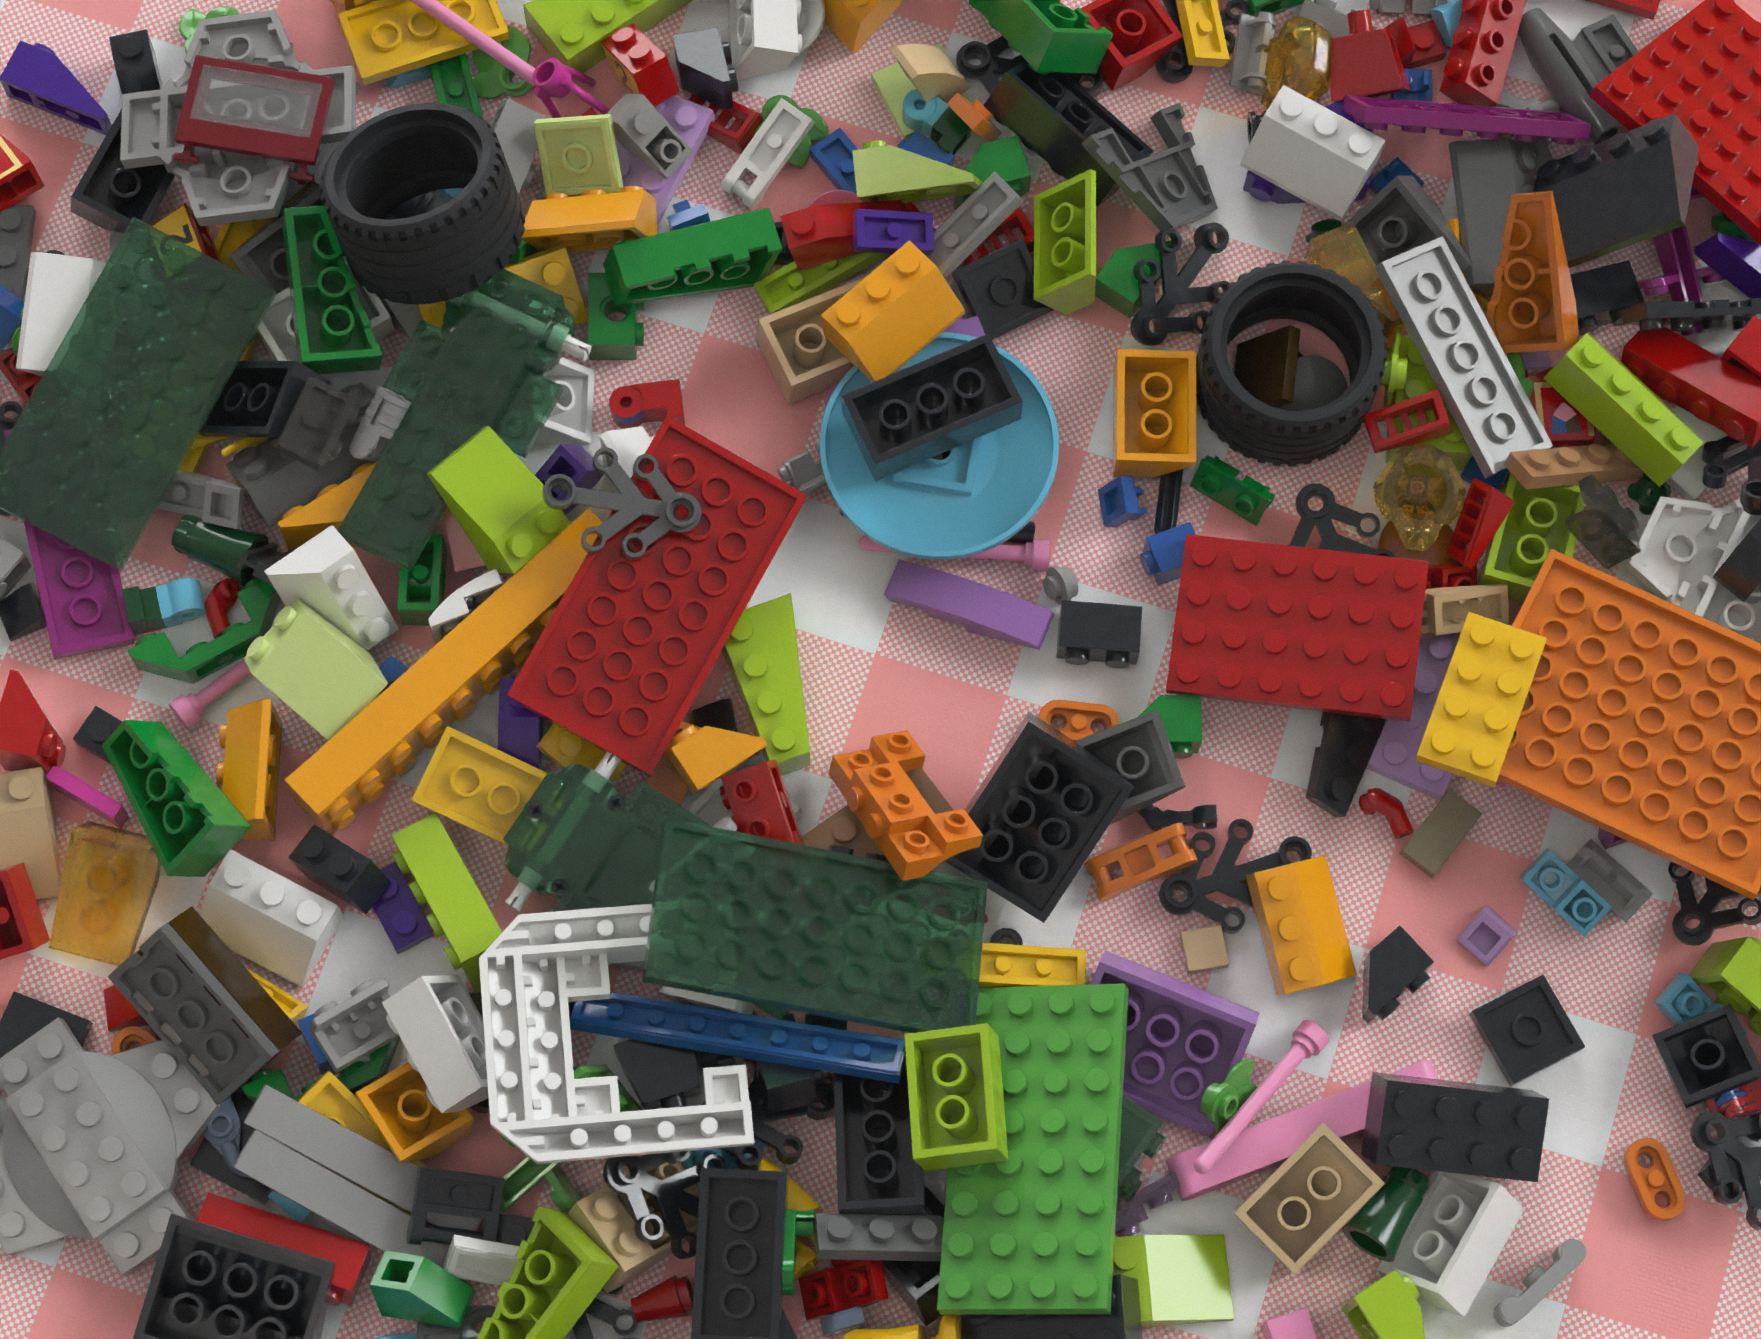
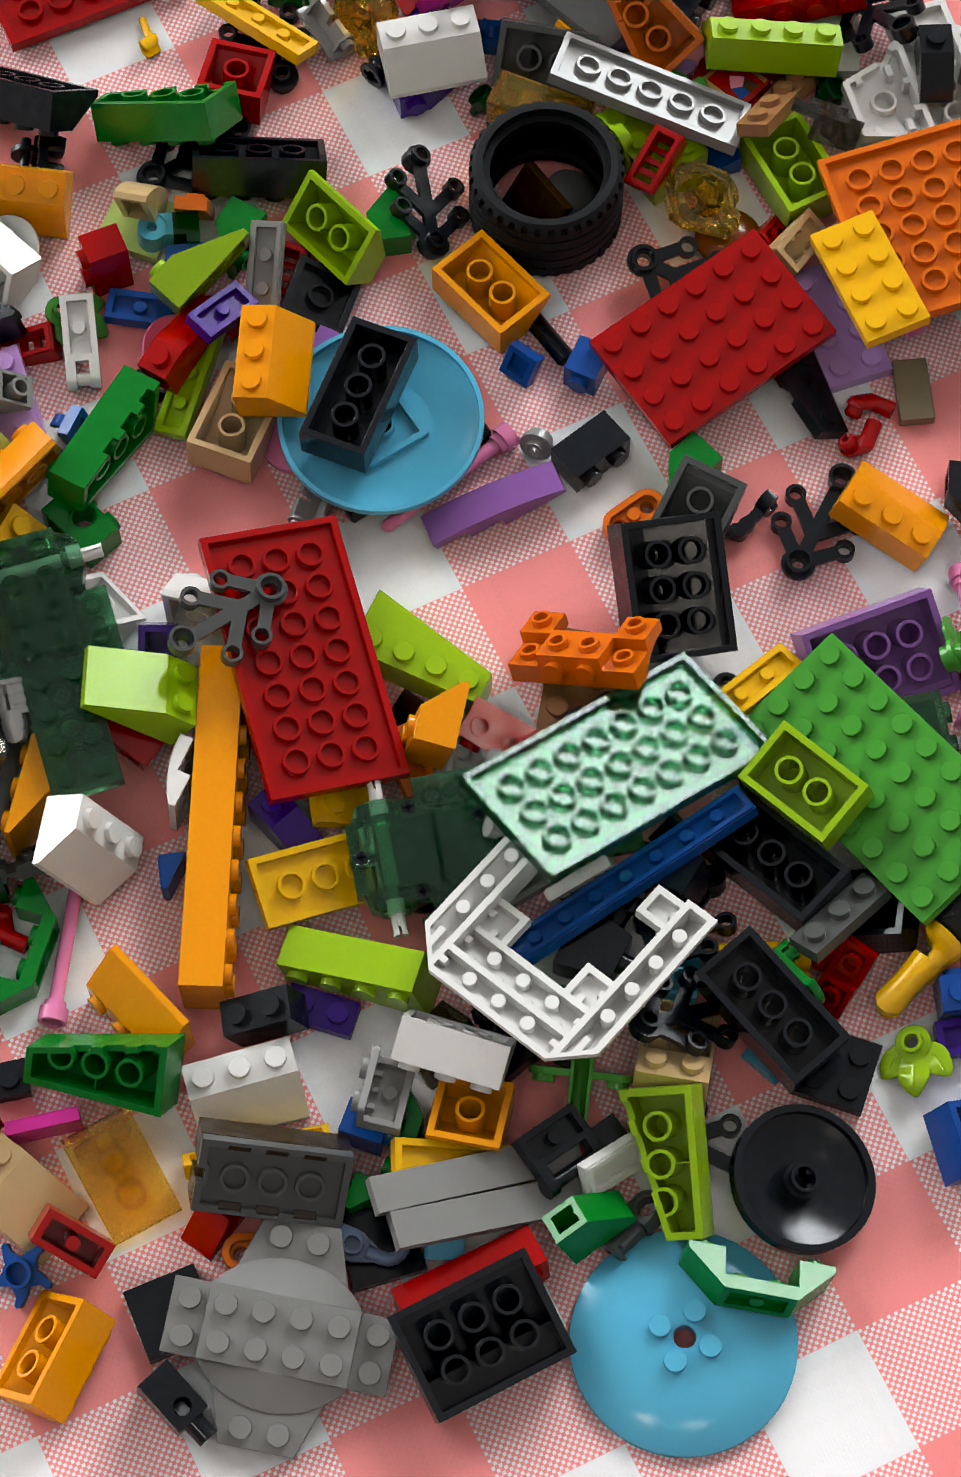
camera: 40 degrees left, 5 degrees down
(315, 668) = (124, 901): yellowish green slope -> none
(424, 586) = (138, 799): green brick -> none
(647, 403) = (162, 558): red leg -> none
(664, 1301) = (742, 1087): red cone -> none
(842, 1322) = (864, 995): sand blue tile -> none
(853, 99) = (104, 260): none -> red brick
(1140, 861) = (757, 562): orange plate -> none
(1163, 185) = (350, 149): dark grey wing -> none
(1204, 949) = (846, 582): tan tile -> none
(1219, 483) = (582, 300): green hinge -> none
(1346, 839) = (861, 444): none -> red arm
(1478, 522) = (756, 167): red slope -> none

